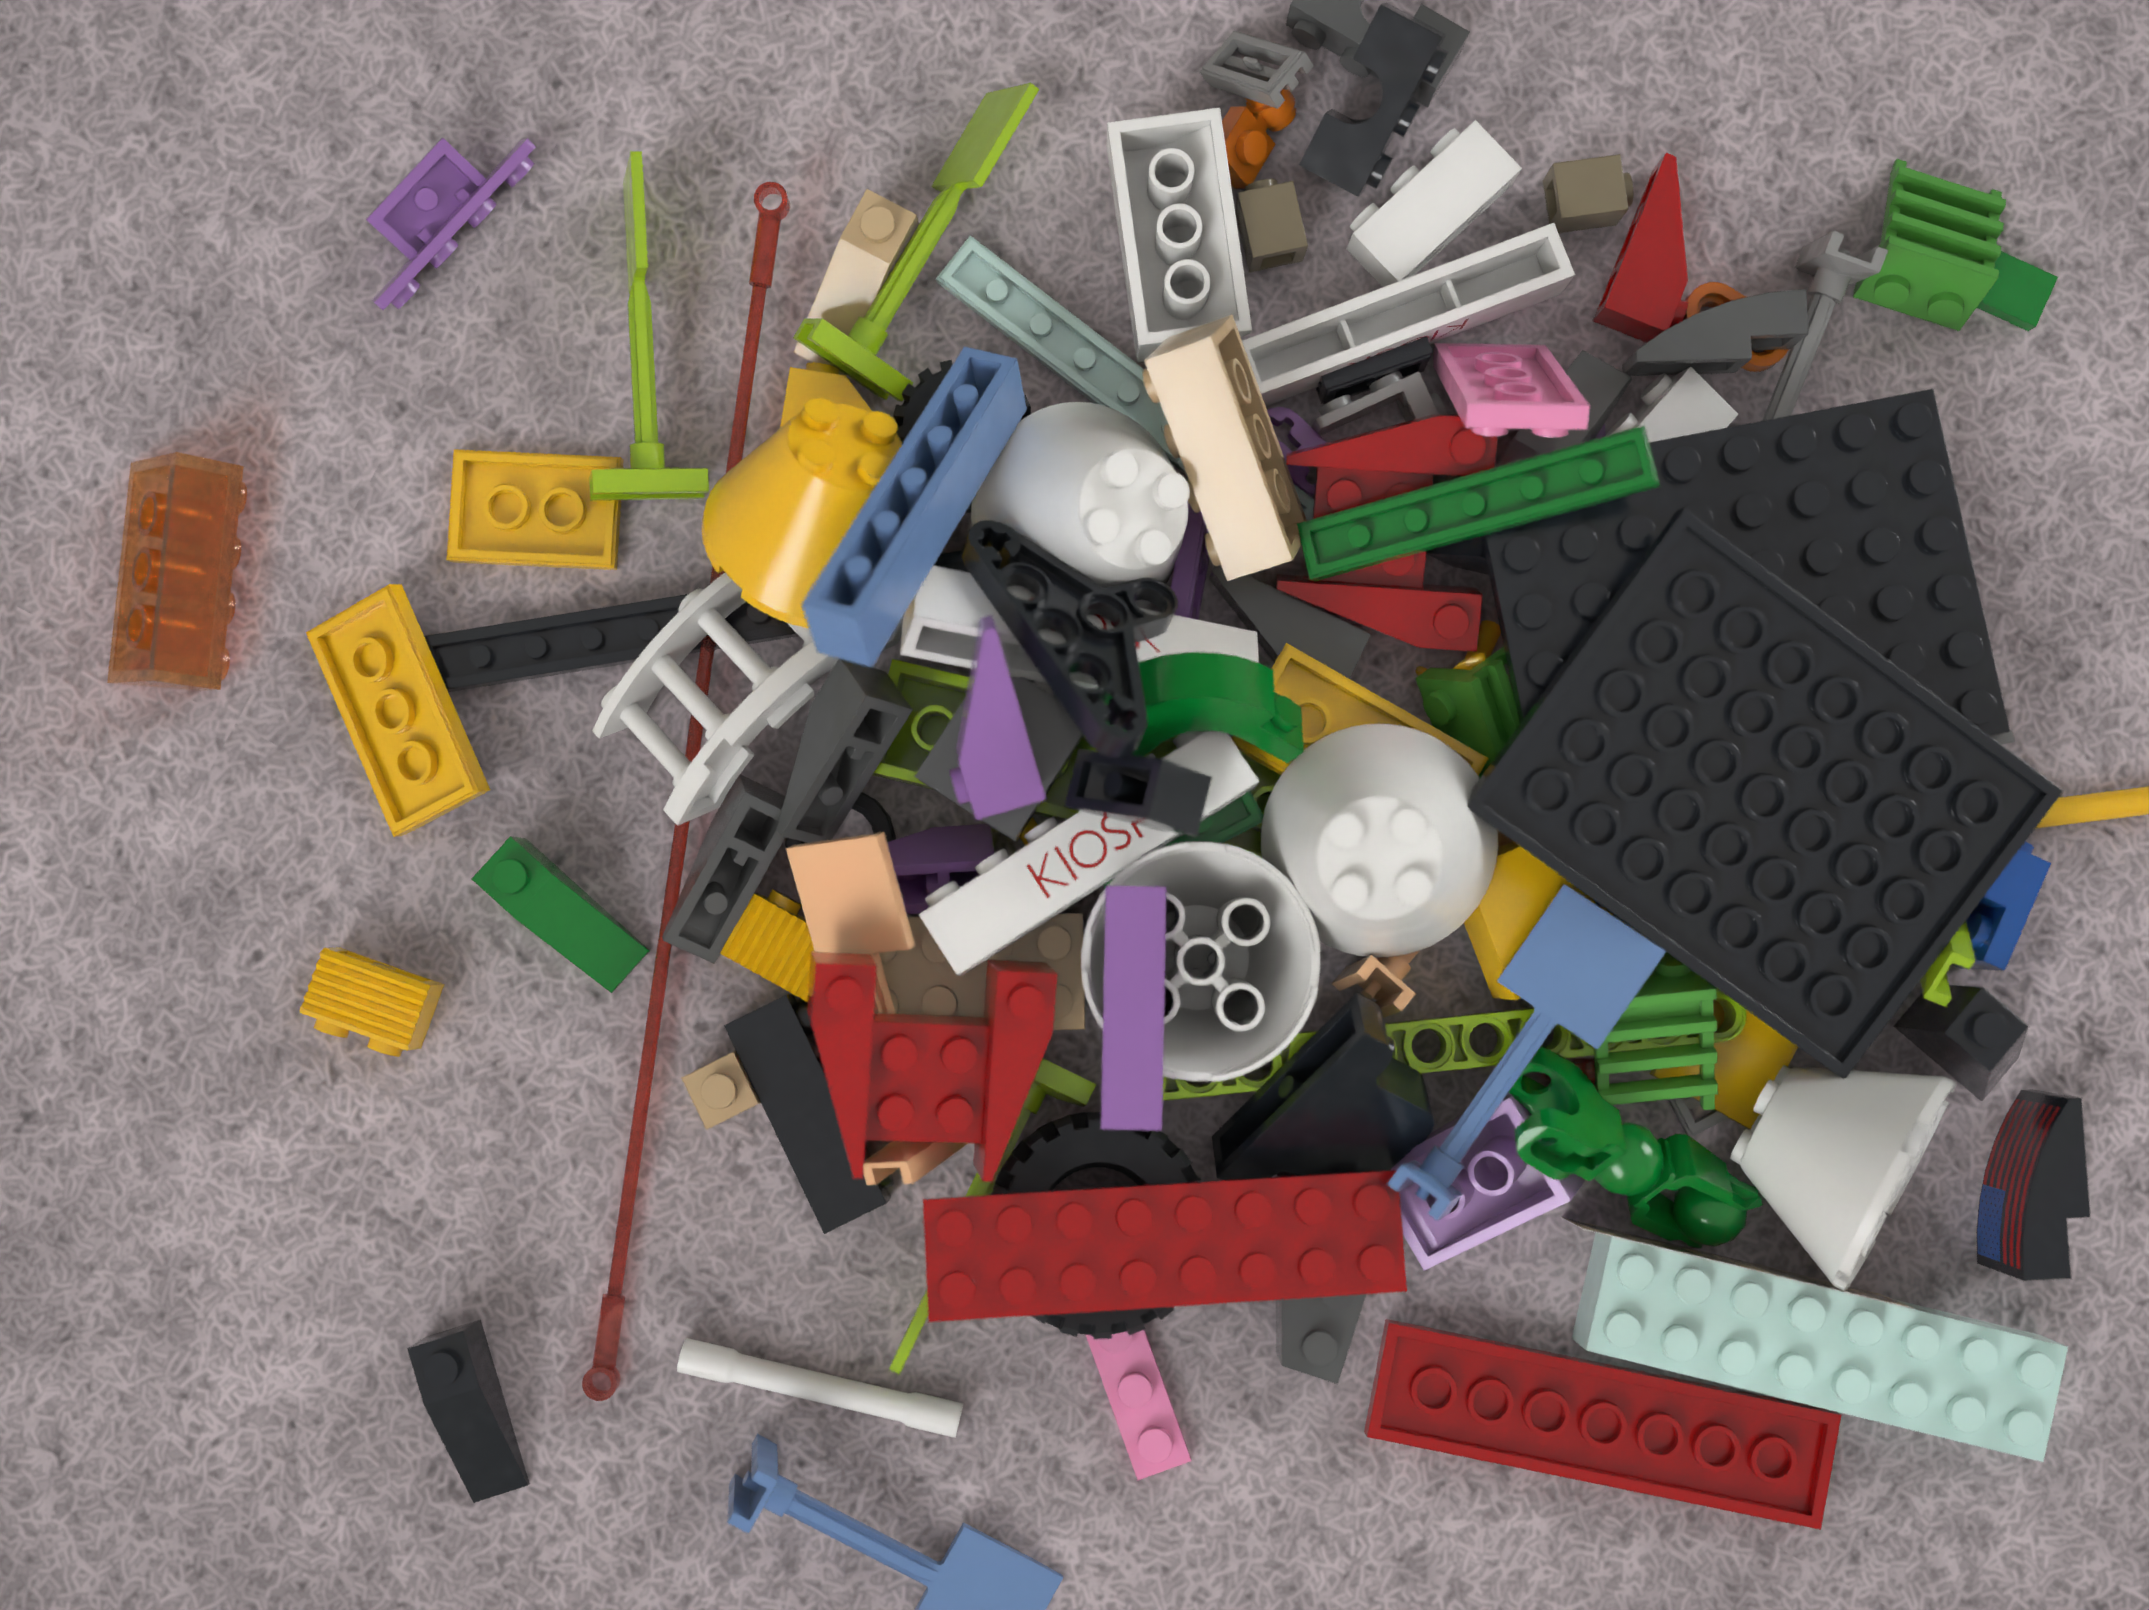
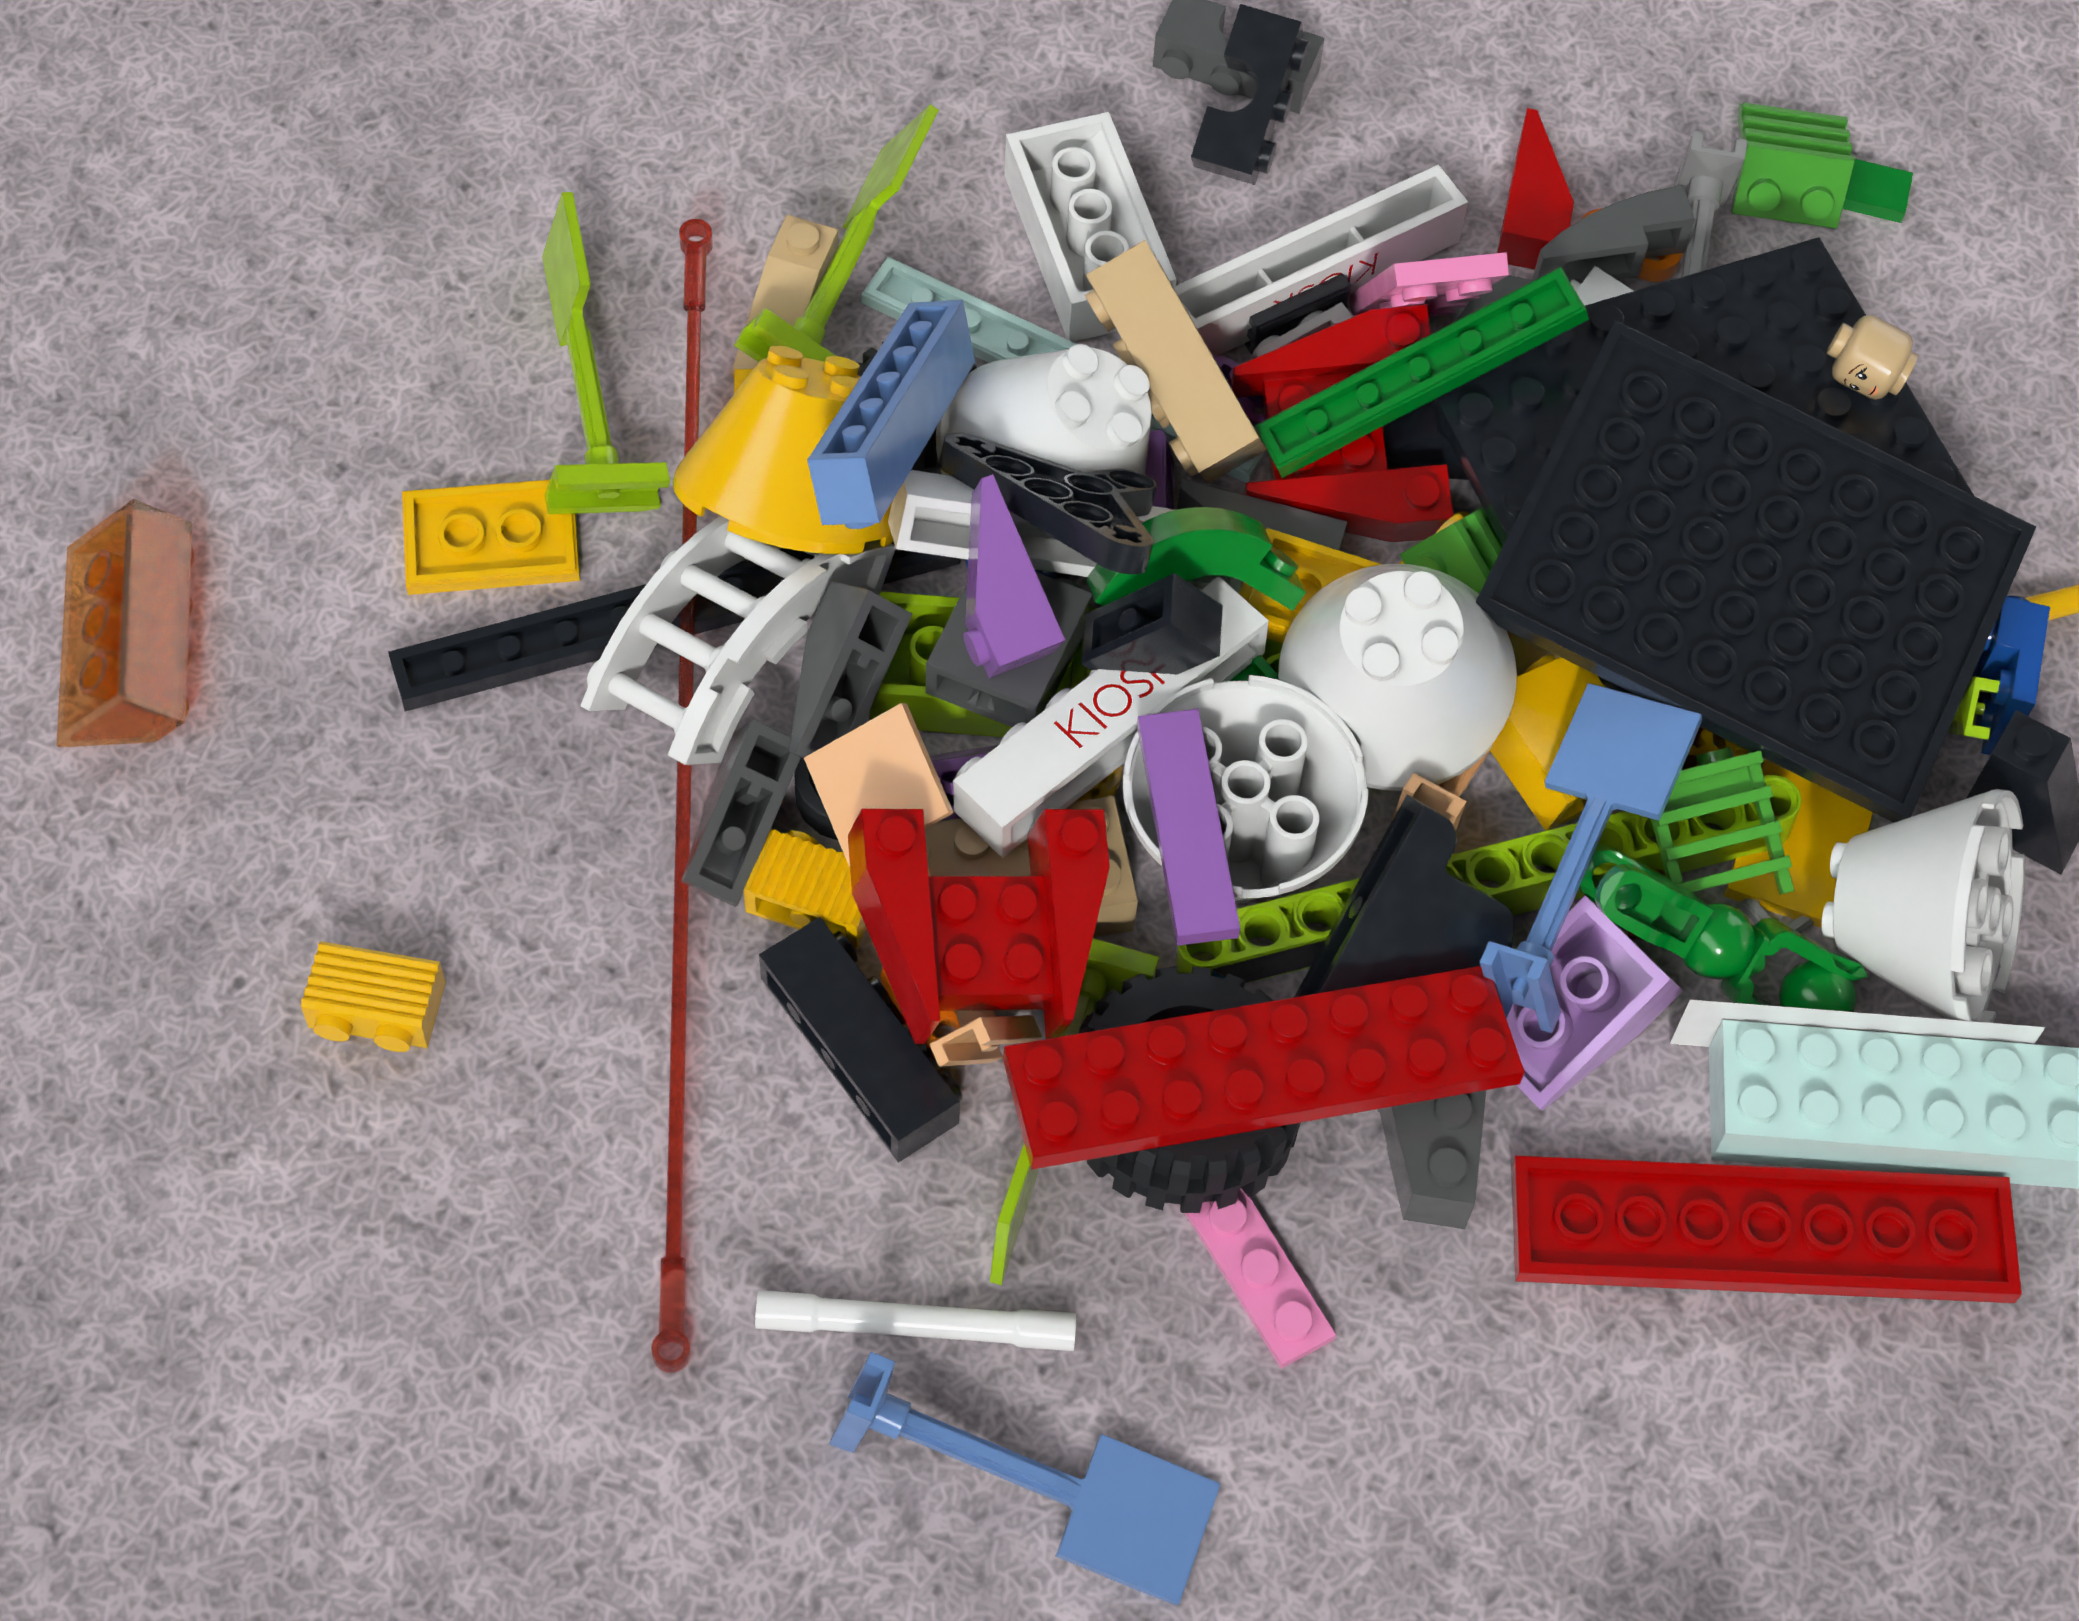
camera: 15 degrees left, 25 degrees down
(397, 710) = (372, 723): yellow tile -> none
(434, 205) = (358, 287): medium lavender bracket -> none
(469, 1409) = (530, 1396): black slope -> none
(560, 912) = (564, 884): green slope -> none
(721, 1090) = (766, 1024): tan brick -> none
(1247, 137) = (1148, 126): orange plate -> none
(1250, 78) = (1134, 88): light grey tile -> none
(1270, 224) = (1178, 211): dark tan brick -> none
(1432, 205) = (1327, 175): white brick -> none
(1587, 193) = (1466, 152): dark tan brick -> none
(1948, 568) = (1872, 357): none -> tan head

